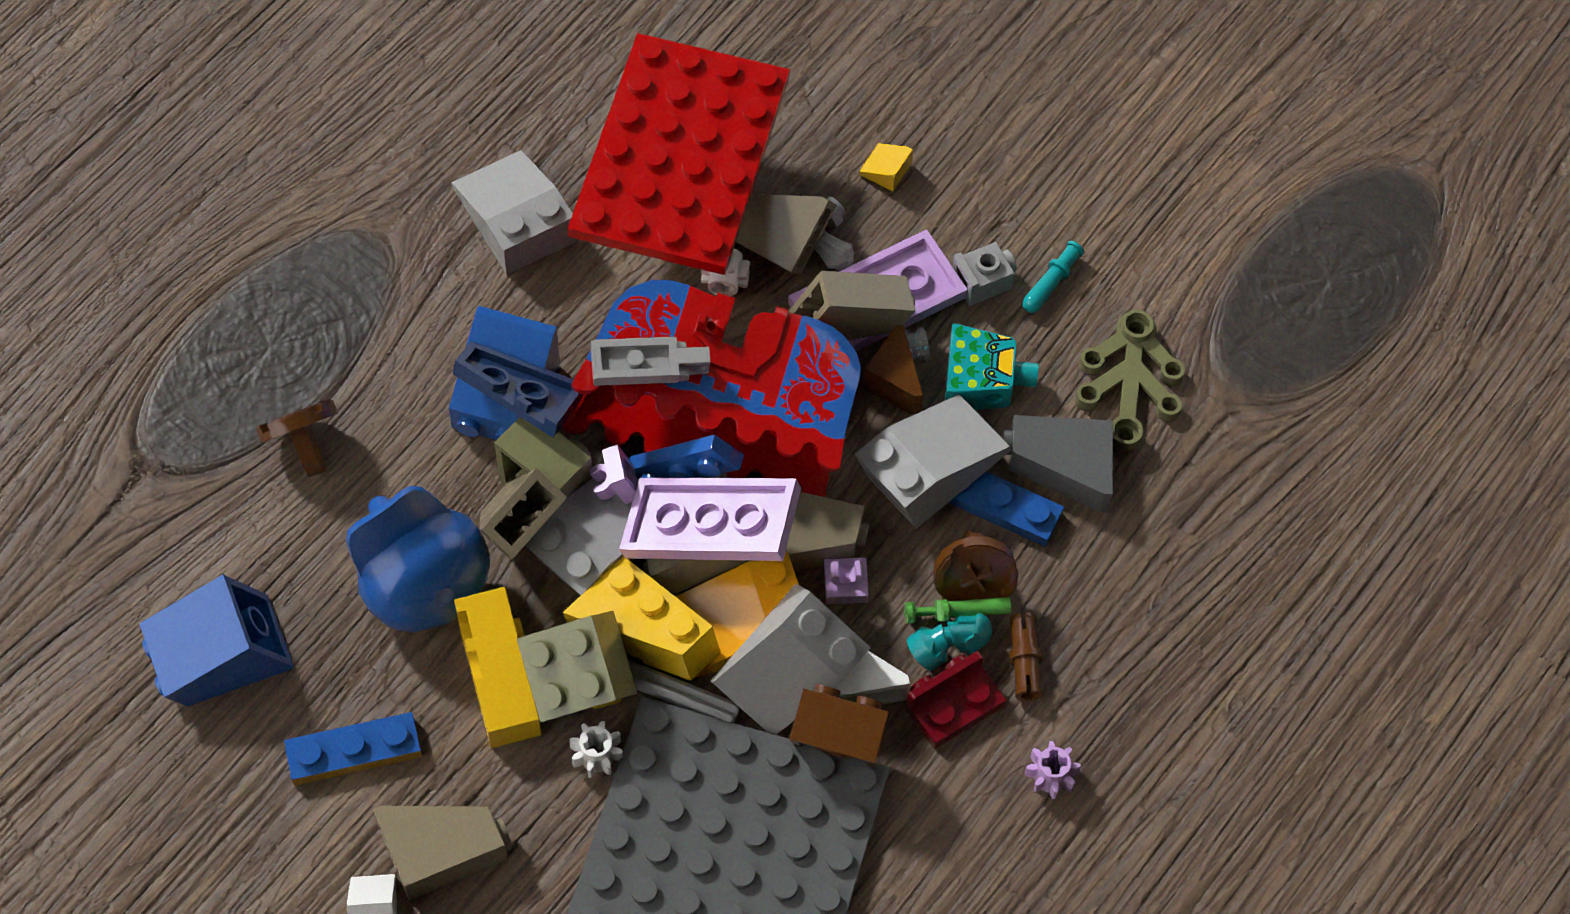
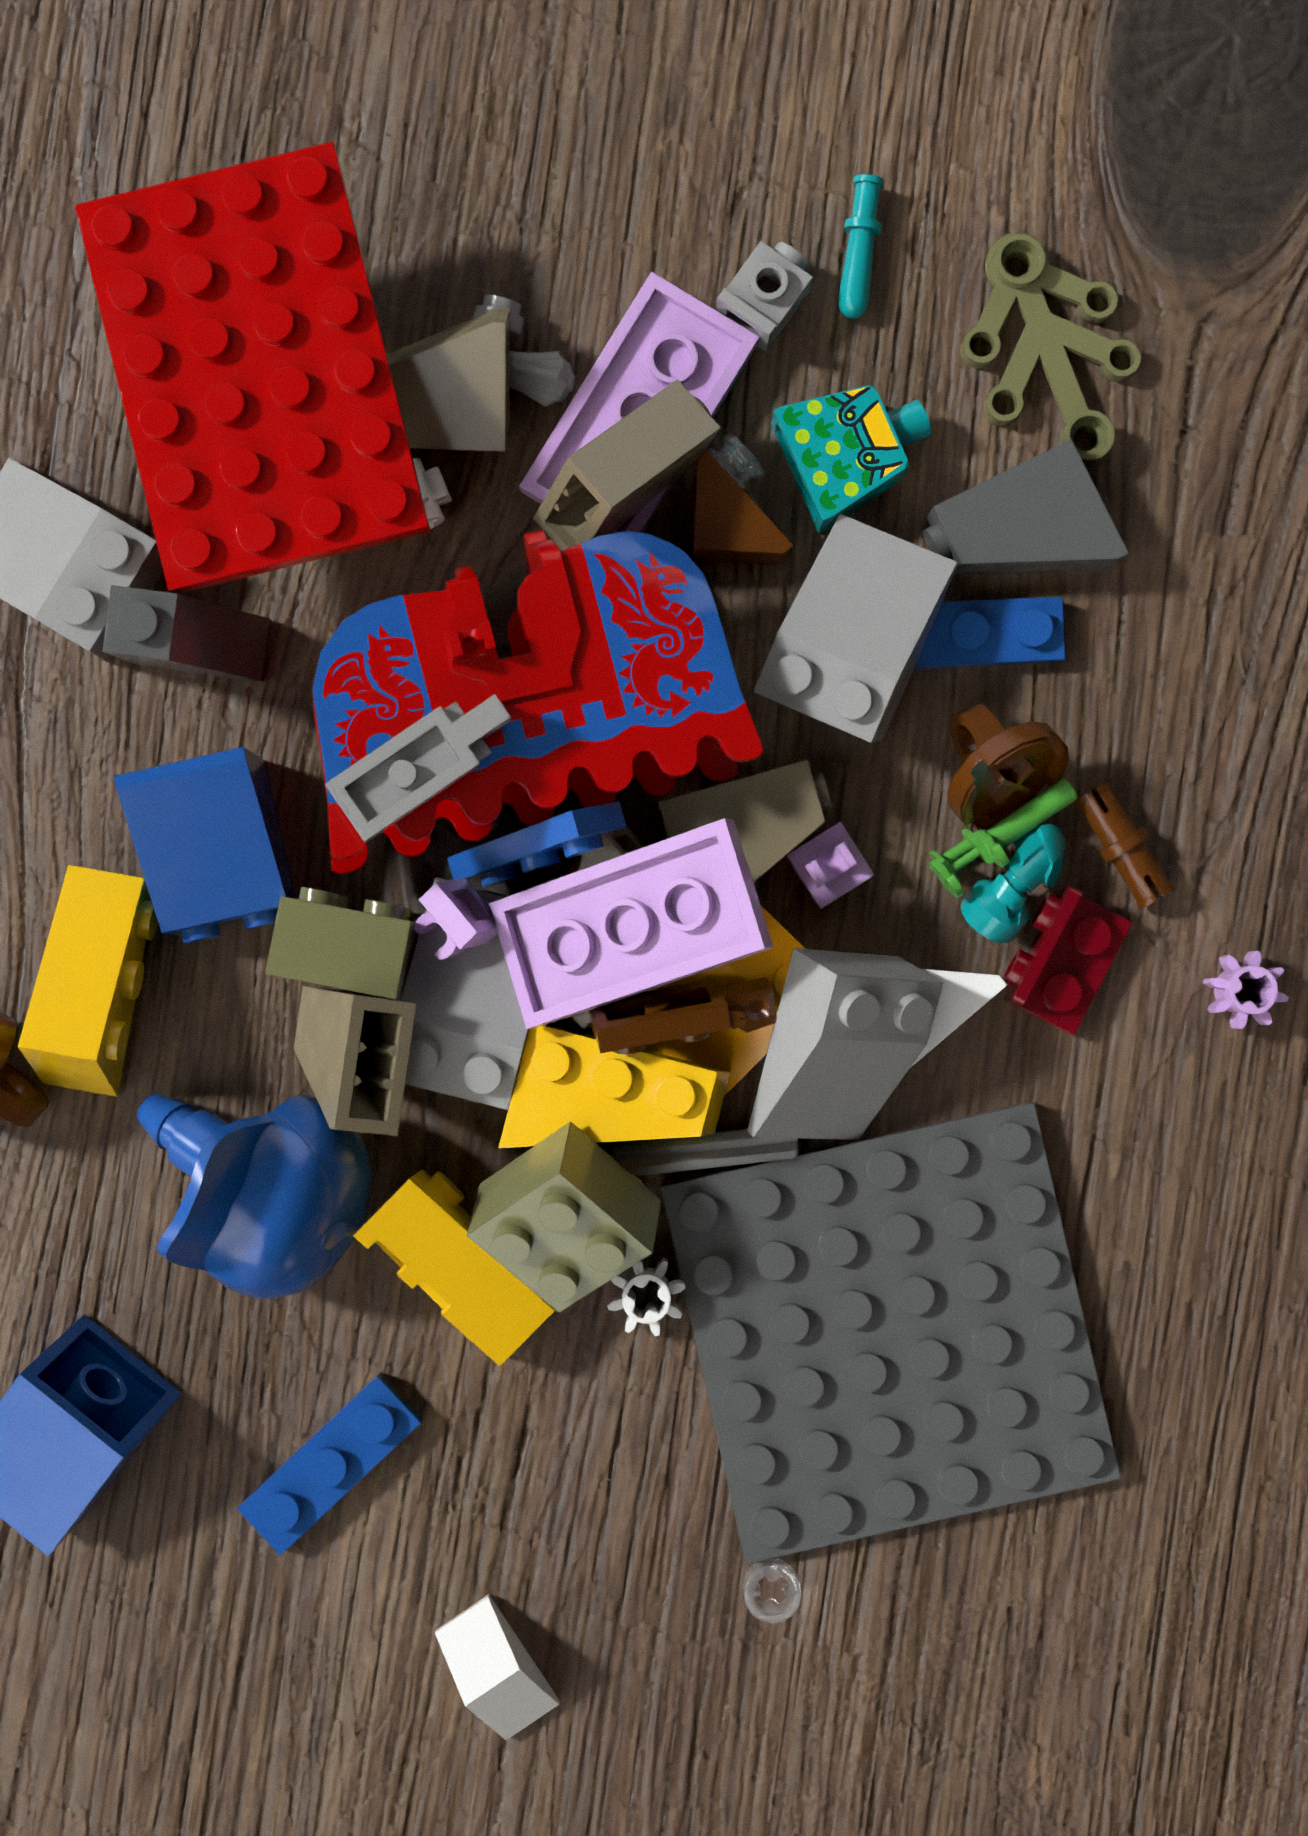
camera: 25 degrees left, 25 degrees up
(388, 419) = (89, 981): none -> yellow wedge
(440, 843) = (521, 1537): dark tan slope -> none
(521, 387) = (248, 870): dark blue wing -> none
(558, 269) = (185, 634): none -> dark grey slope
(715, 591) = (682, 1013): none -> reddish brown hinge
(840, 725) = (961, 1114): reddish brown slope -> none
(887, 165) = (533, 191): yellow slope -> none

